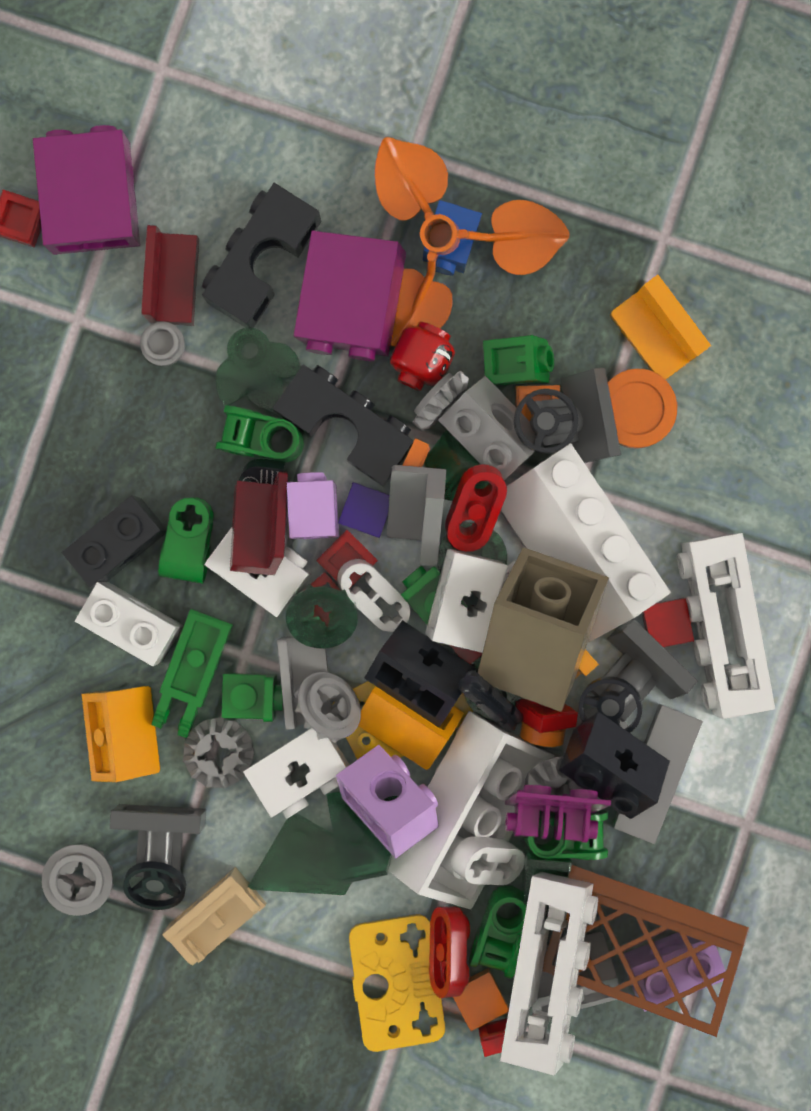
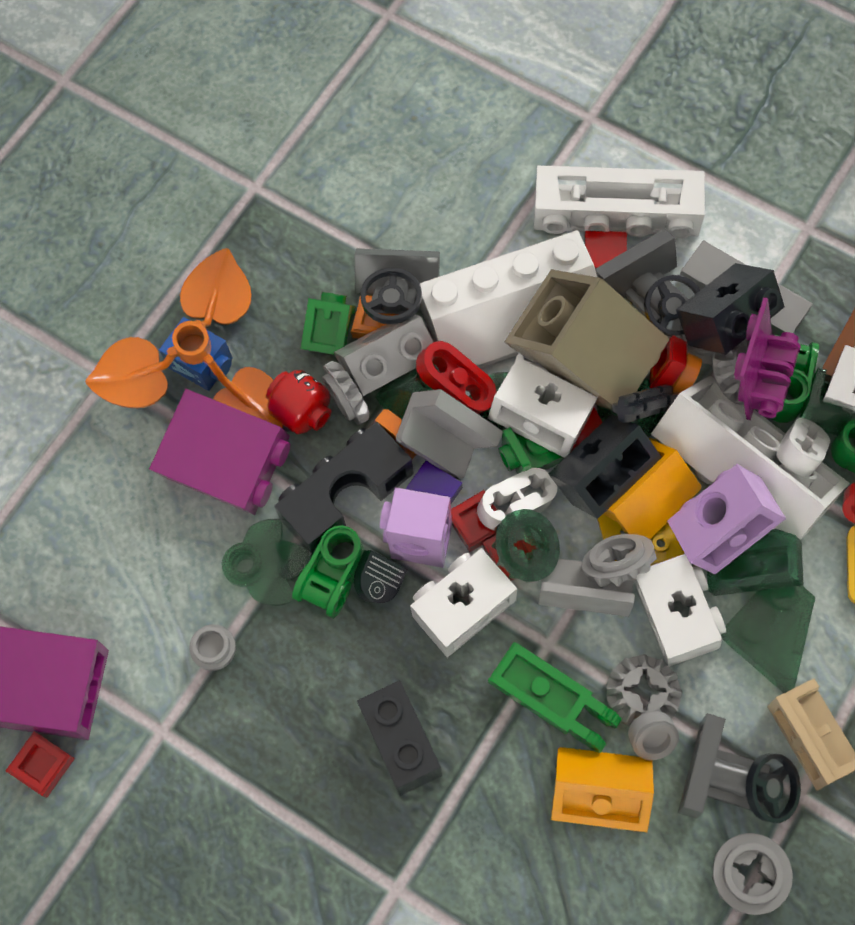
camera: 70 degrees left, 20 degrees down
(129, 623) = (488, 743): white brick -> none
(170, 277) = (150, 622): dark red panel -> none
(176, 770) = (653, 735): none -> light grey tile
(185, 548) = (425, 668): green piece -> none
(251, 696) = (592, 641): green bracket -> none
(259, 526) = (421, 575): dark red panel -> none
(276, 222) = (182, 556): black arch -> none
(642, 407) = (401, 227): orange piece -> none
(659, 328) = (334, 201): light orange panel -> none

